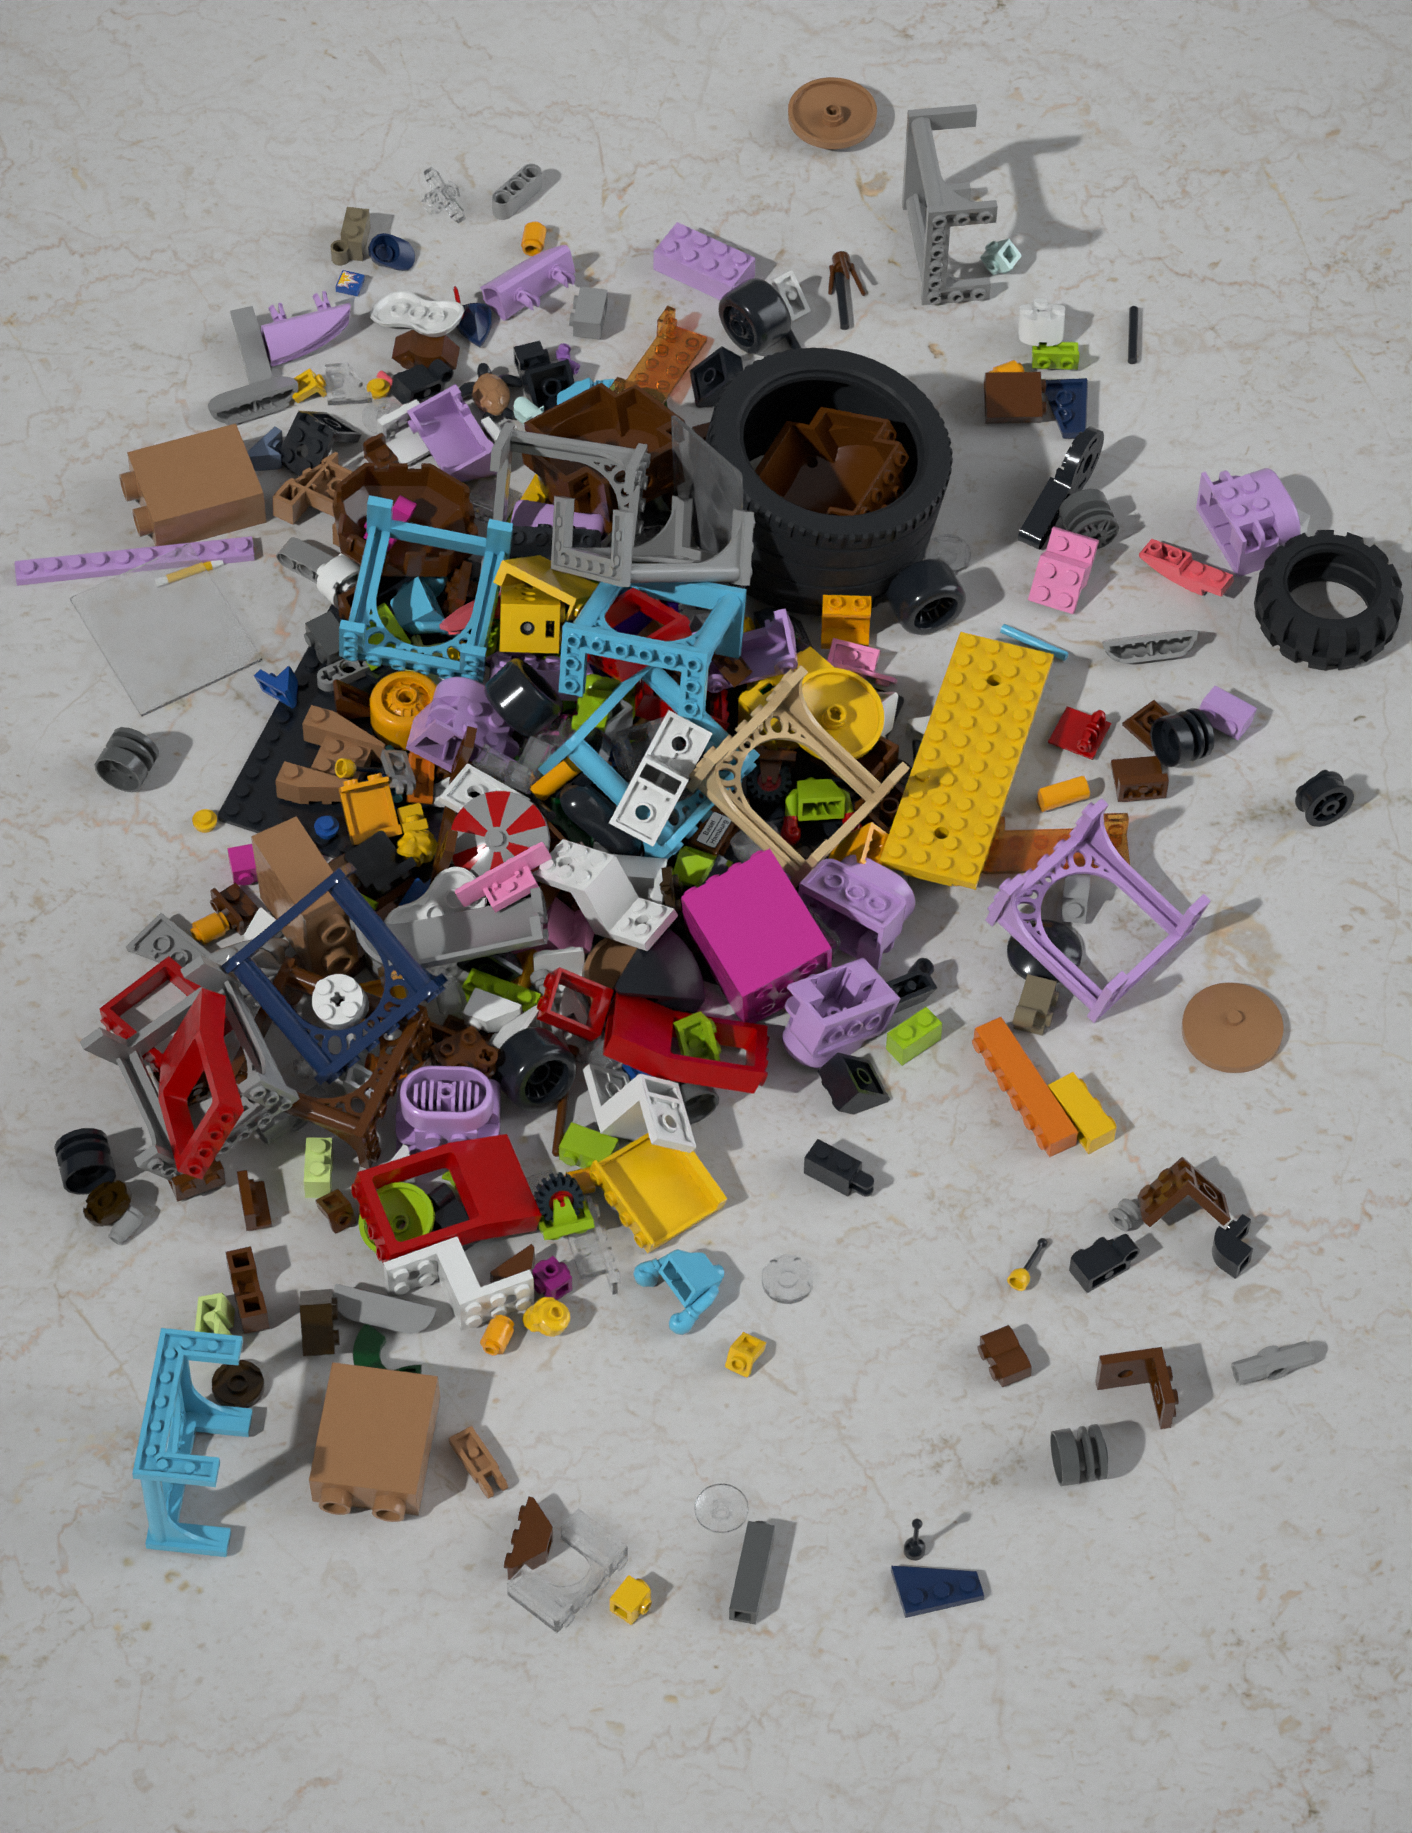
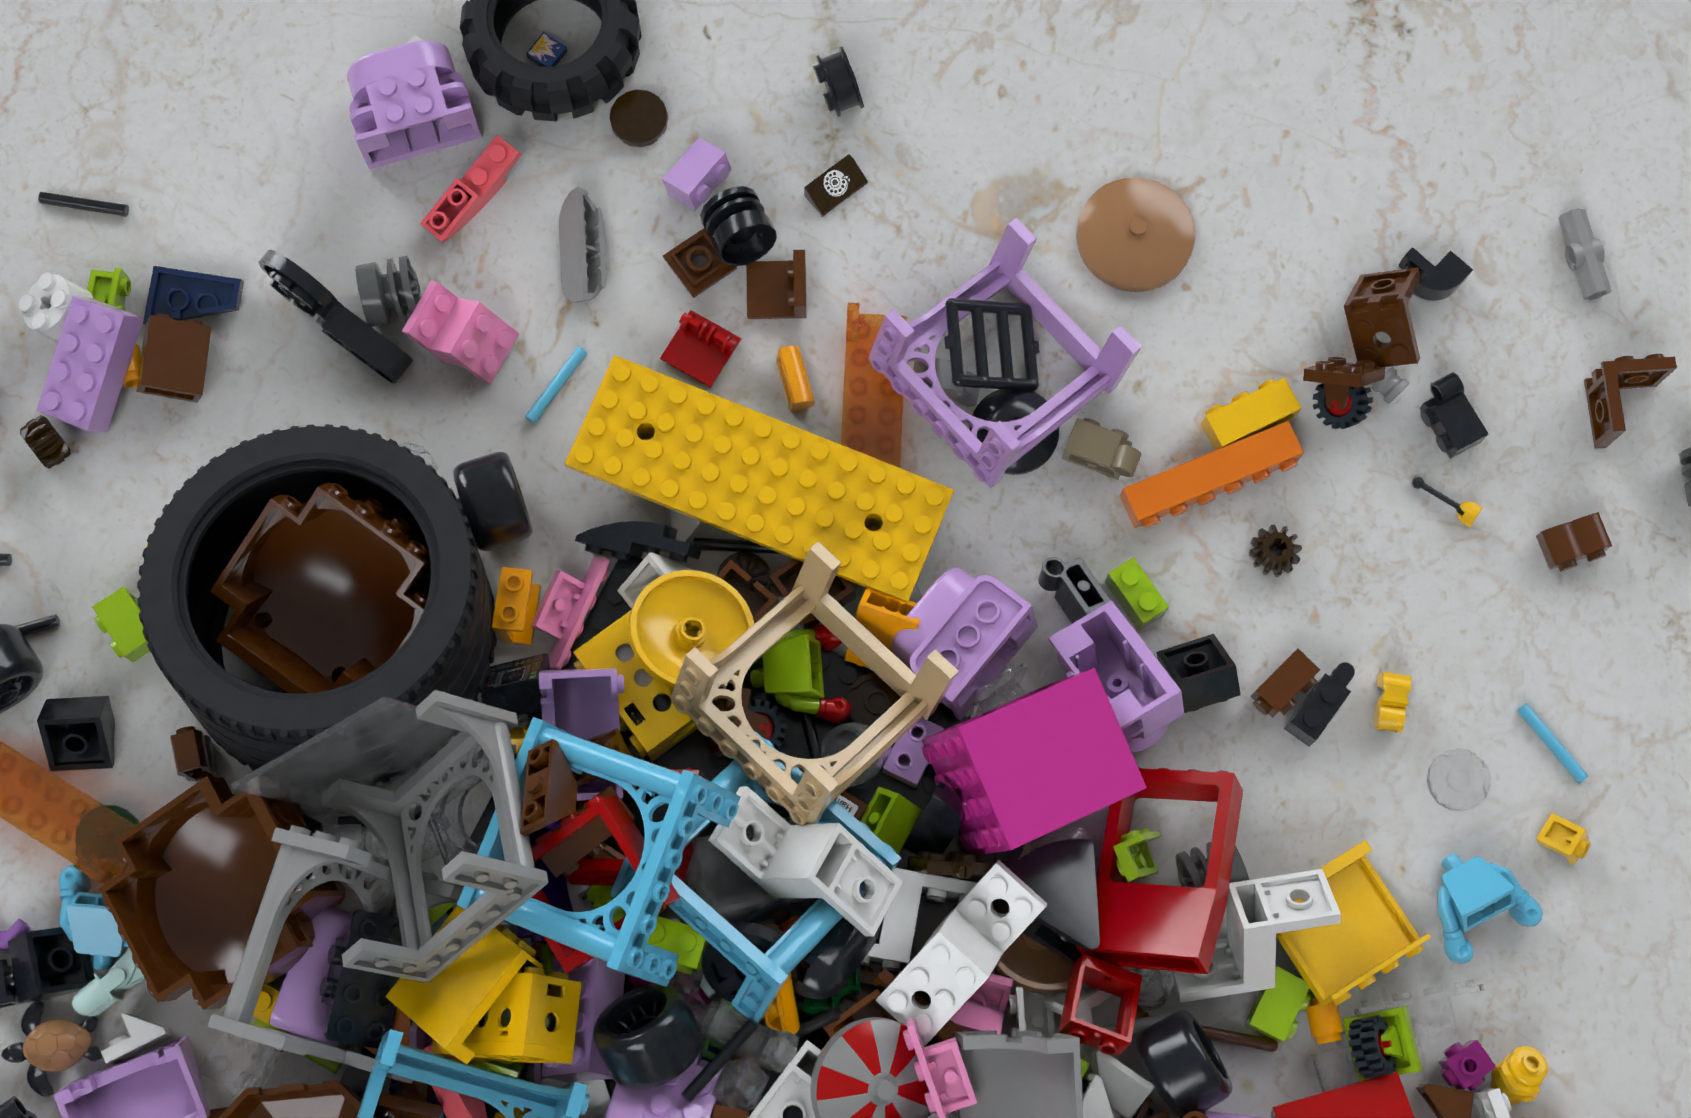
camera: 85 degrees left, 20 degrees up
(510, 744) = (719, 1060): none -> black bar
(689, 593) = (548, 788): none -> reddish brown slope
(827, 1347) = (1552, 743): none -> medium azure bar
(839, 1222) = (1391, 705): none -> yellow leg
(853, 1142) = (1279, 689): none -> reddish brown brick
(910, 695) = (636, 537): none -> black slope
(936, 330) = (45, 441): none -> dark brown gear
(965, 1134) = (1270, 538): none -> dark brown gear
(998, 344) = (90, 364): none -> lavender brick
(1083, 936) = (1002, 310): none -> black bar
(1113, 1169) = (1342, 392): none -> plate
(1237, 811) = (835, 185): none -> dark brown slope
(1271, 675) = (638, 118): none -> dark brown tile
(1319, 607) = (546, 51): none -> tile

